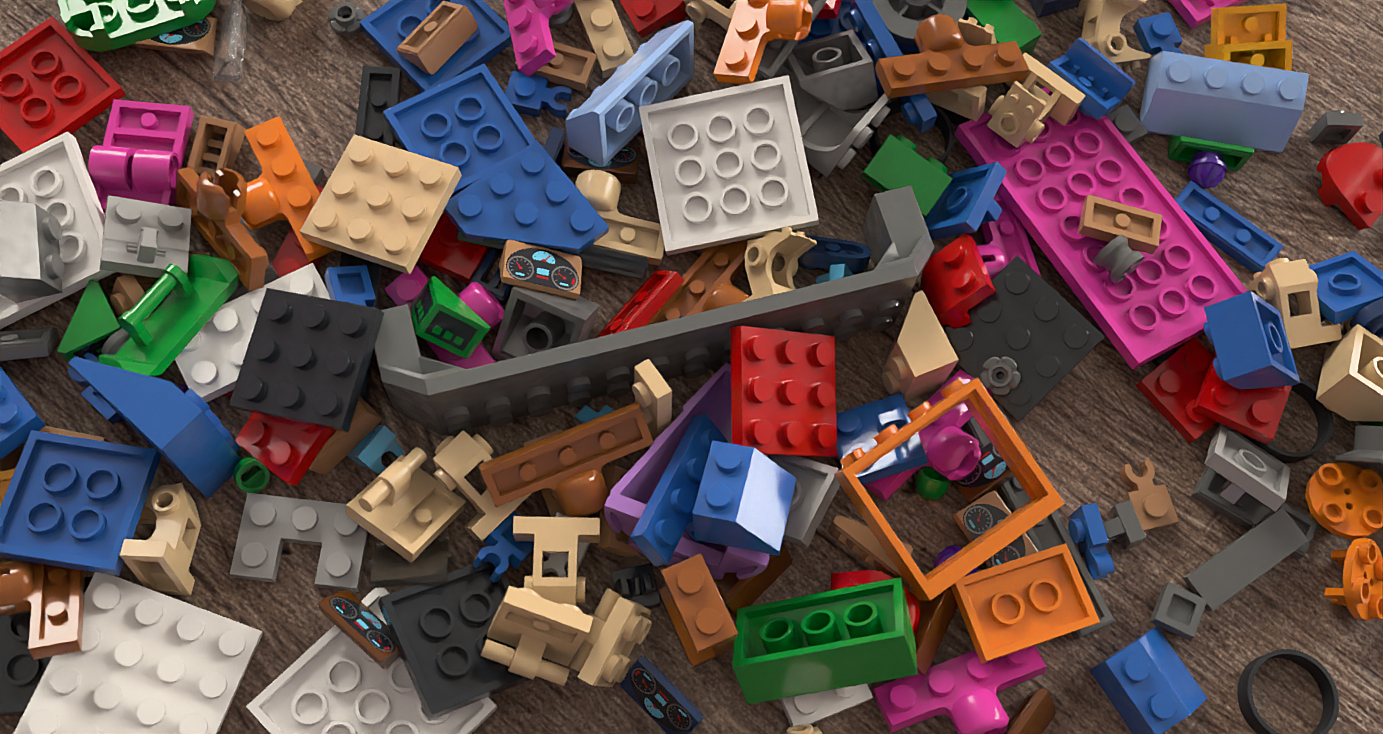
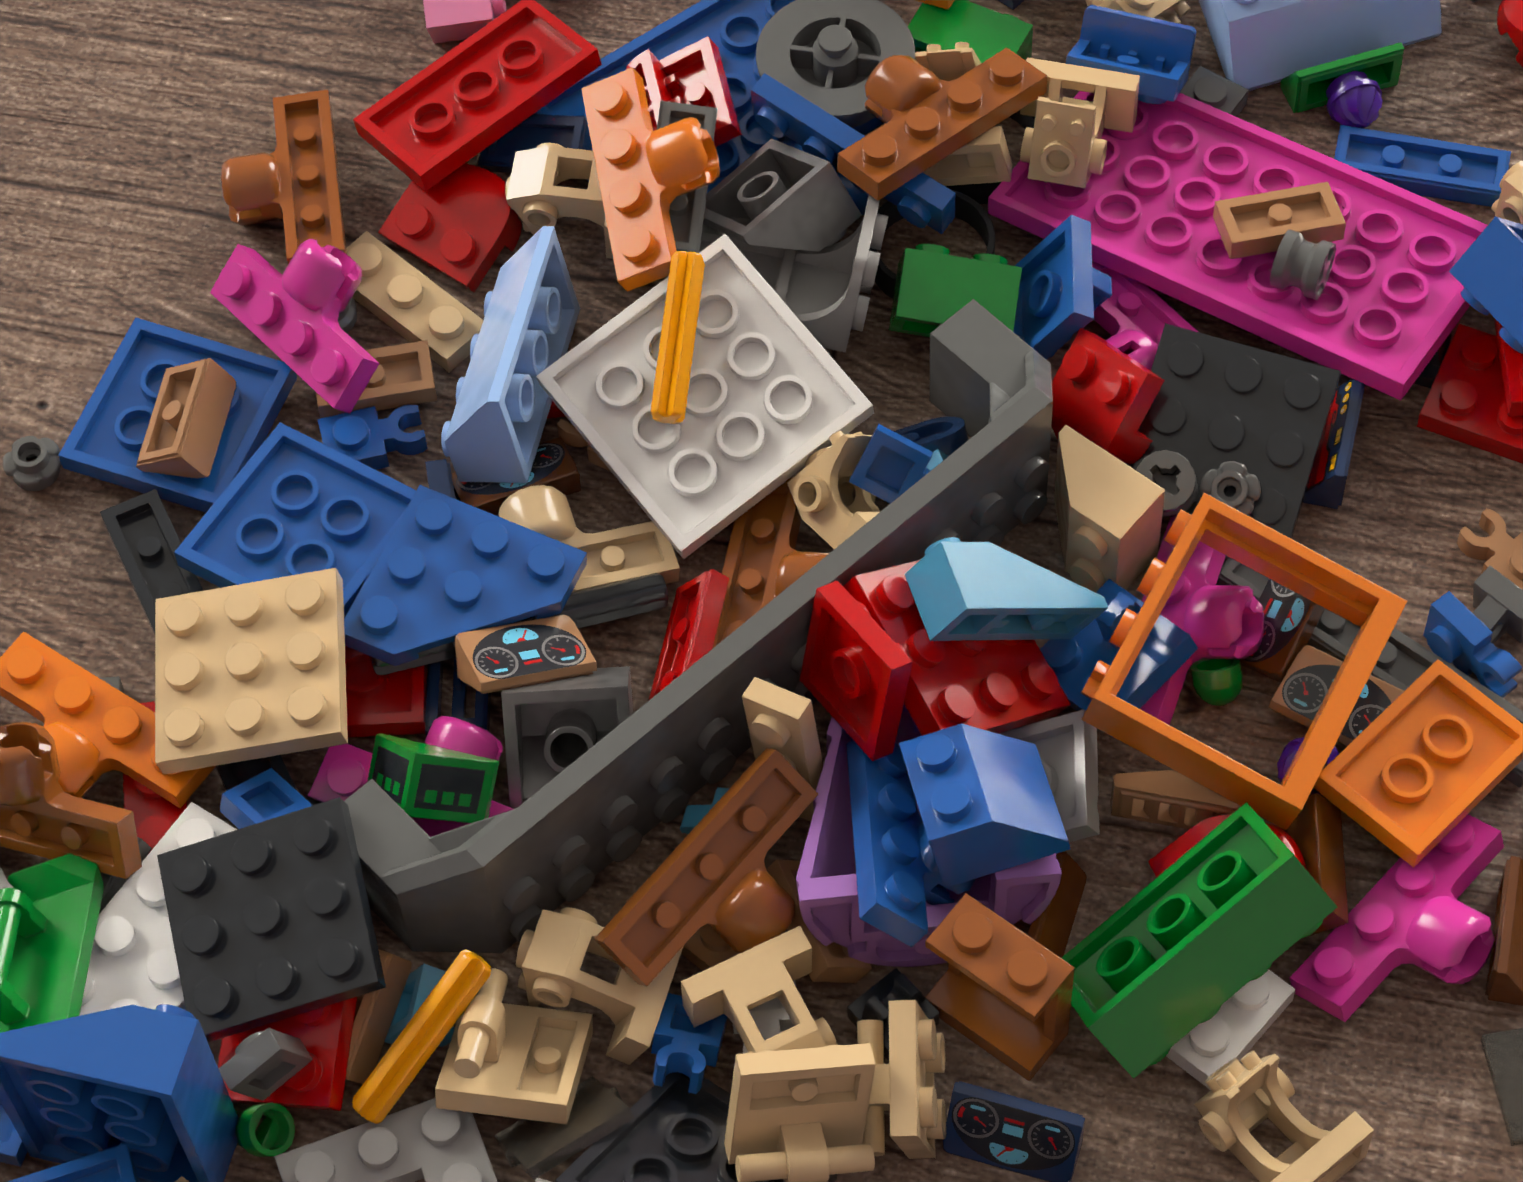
camera: 15 degrees left, 10 degrees down
(259, 441) = (264, 1063): none -> dark grey plate
(358, 468) = (421, 1036): none -> light orange axle
(714, 381) = (855, 670): none -> red plate
(728, 124) = (677, 337): none -> light orange axle
(809, 263) = (890, 465): none -> blue plate
(820, 375) = (996, 595): none -> dark azure slope
(969, 358) = (1179, 488): none -> dark grey wheel
(1076, 381) = (1334, 454): none -> dark blue slope

